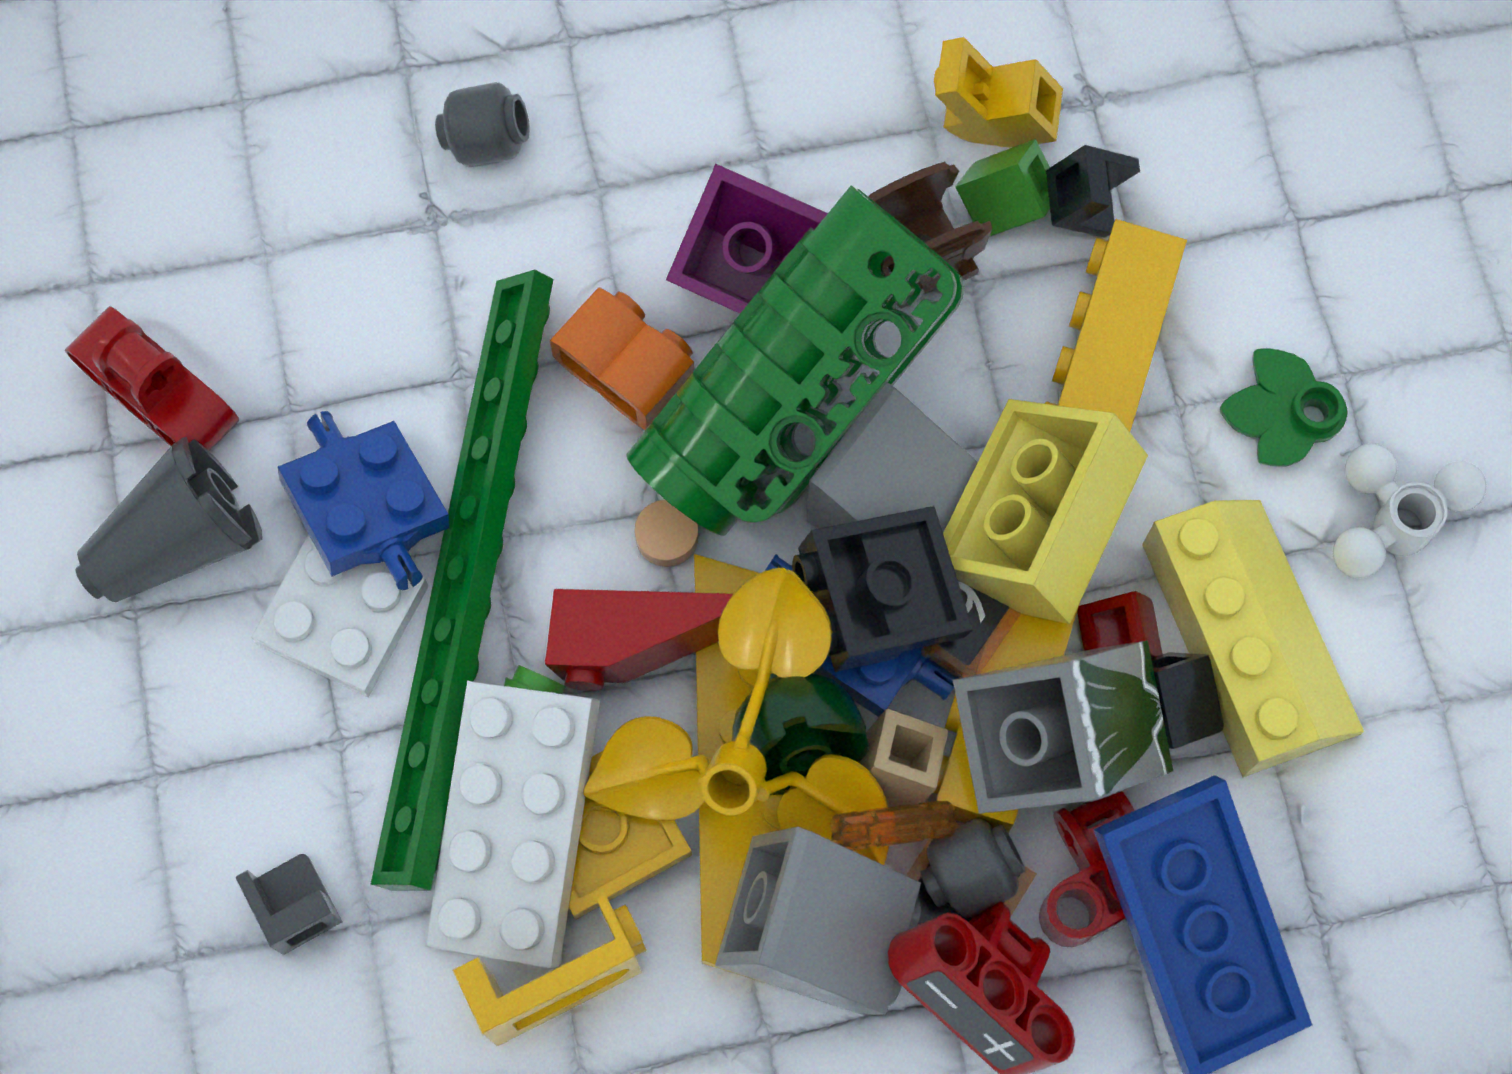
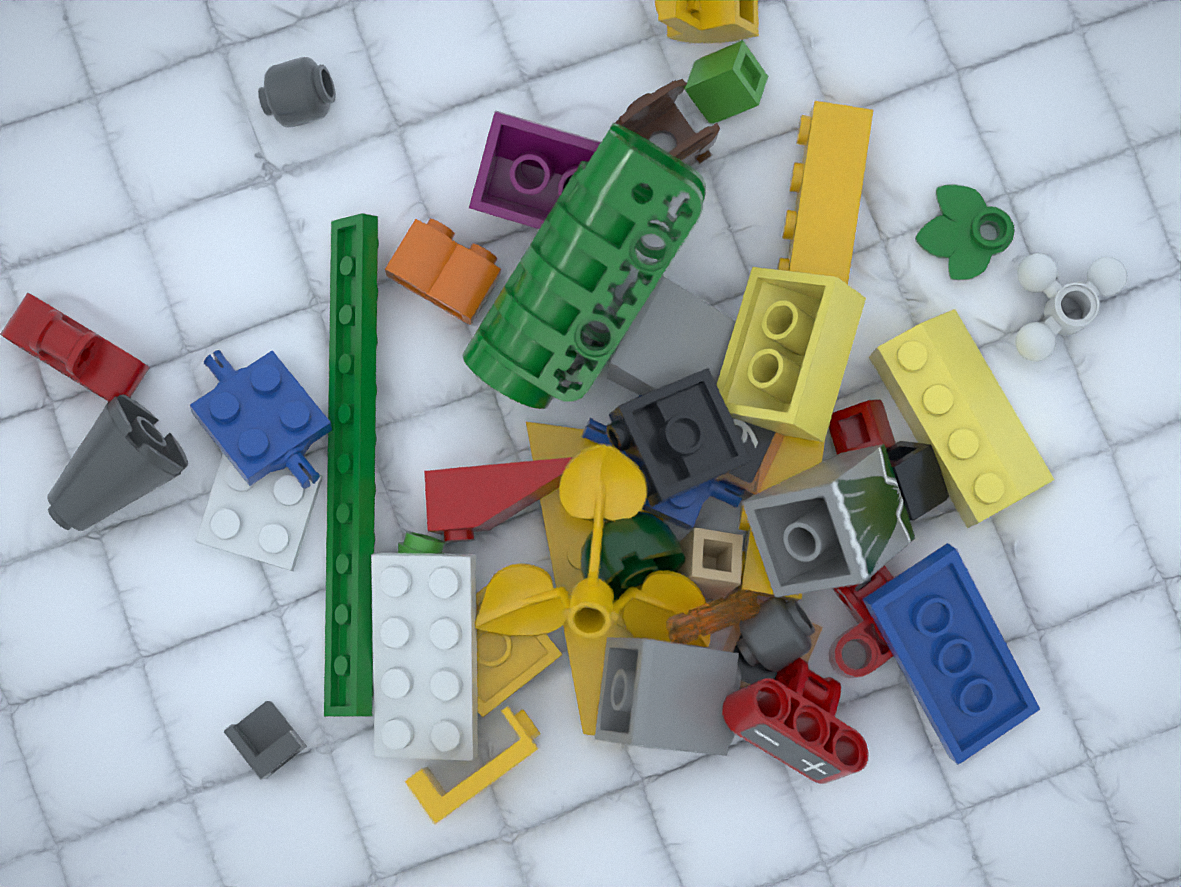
camera: 15 degrees left, 10 degrees up
(665, 534) = (498, 411): light nougat tile -> none
(1082, 189) = (785, 76): black panel -> none

